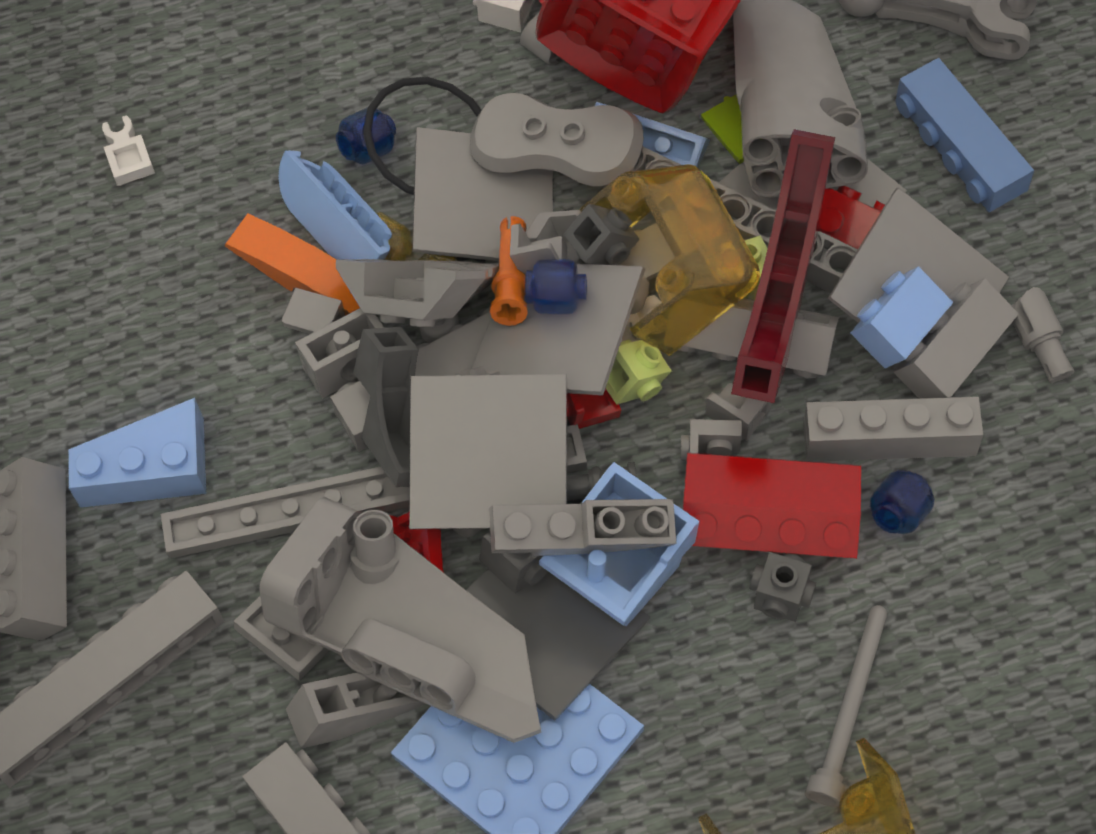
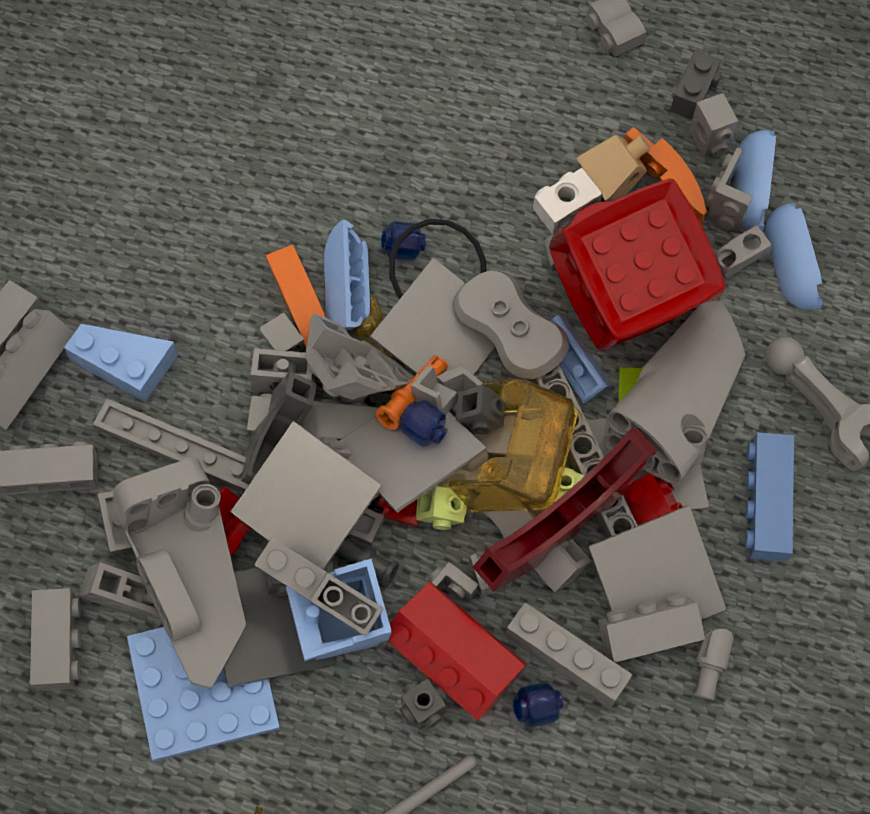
camera: 30 degrees right, 5 degrees up
(126, 153) = (256, 156): white plate -> none
(900, 316) = (624, 589): light blue brick -> none

